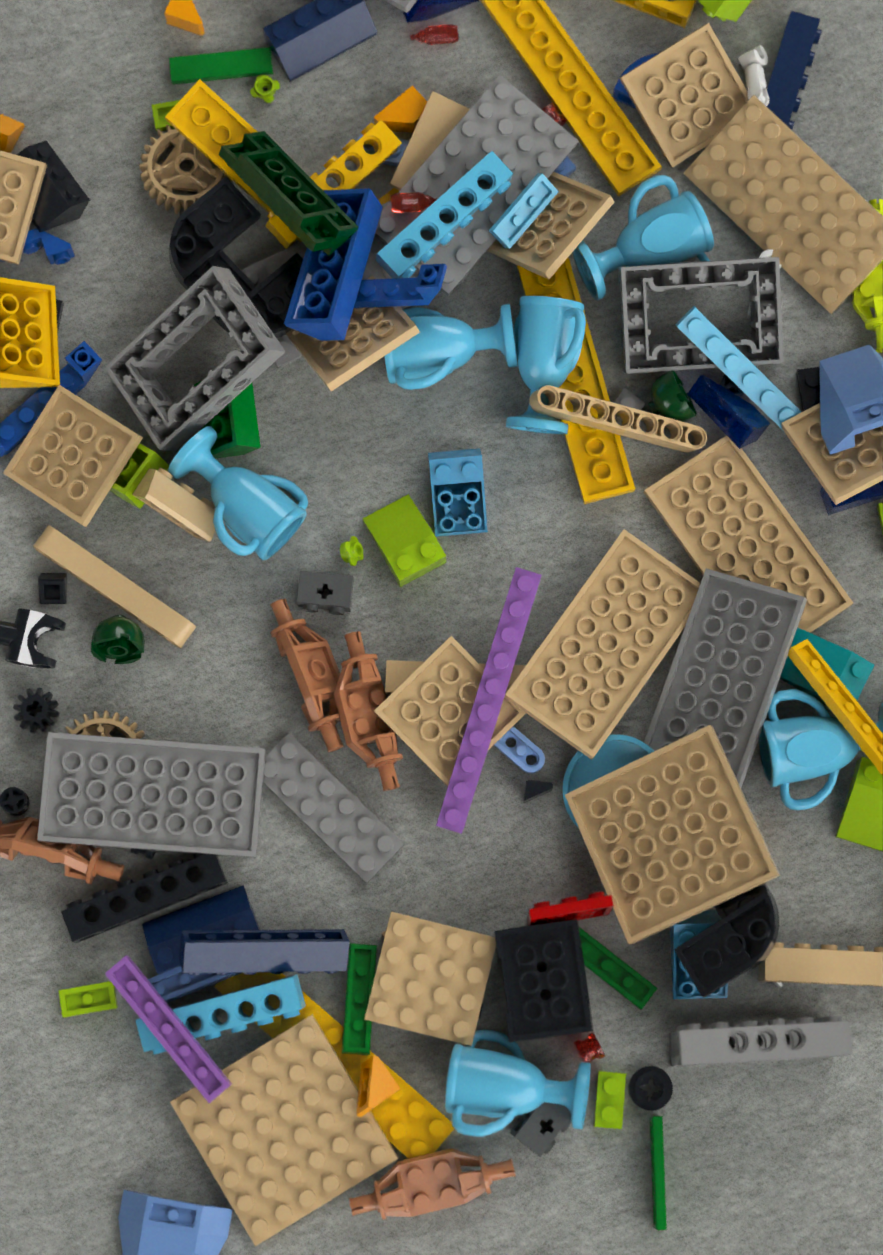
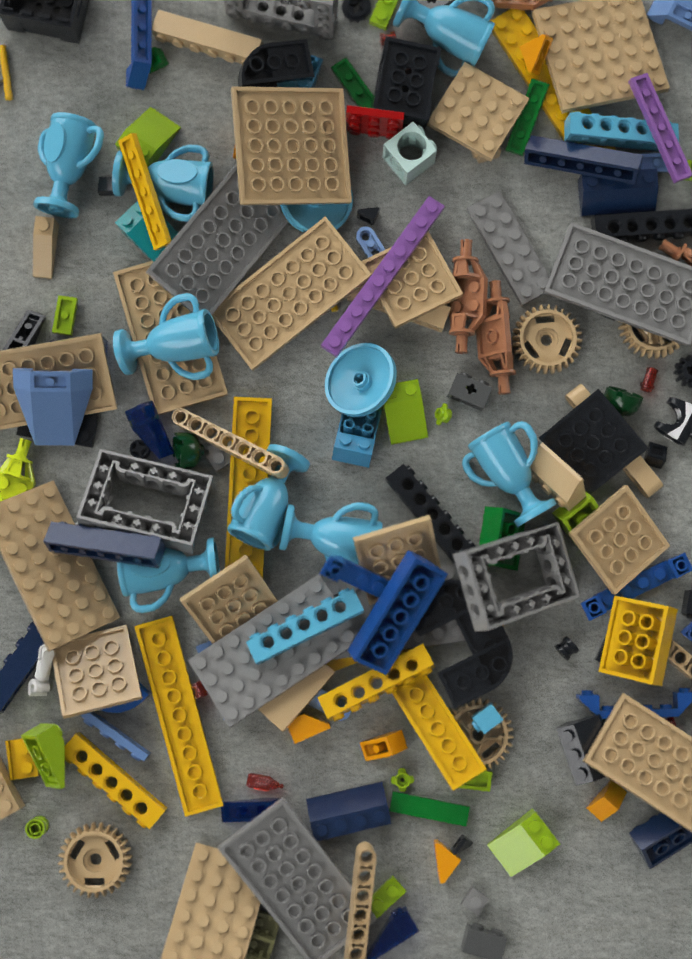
camera: 165 degrees left, 5 degrees up
(88, 683) = (649, 379): none -> clear red pin
(91, 60) = (523, 843): none -> lime slope
(103, 304) = (566, 648): none -> black wheel
(141, 570) = (594, 441): none -> black plate
(169, 35) = (461, 844): none -> black slope
(182, 181) = (486, 718): none -> medium azure brick
(235, 675) = (558, 331): none -> tan gear
(277, 375) = (405, 473): none -> black brick
(289, 192) = (414, 676): dark green slope -> none
(300, 119) = (383, 745): none -> light orange slope
(410, 202) = (325, 645): clear red piece -> none
(474, 555) = (360, 379): none -> medium azure dish
(502, 865) = (409, 169): none -> light aqua brick
(523, 211) = (246, 616): medium azure plate -> none
(630, 32) = (122, 740): none -> medium blue plate
(731, 237) = (105, 544): none -> dark blue brick
(737, 366) = (133, 454): medium azure plate -> none
(739, 524) = (173, 340): none -> medium azure piece

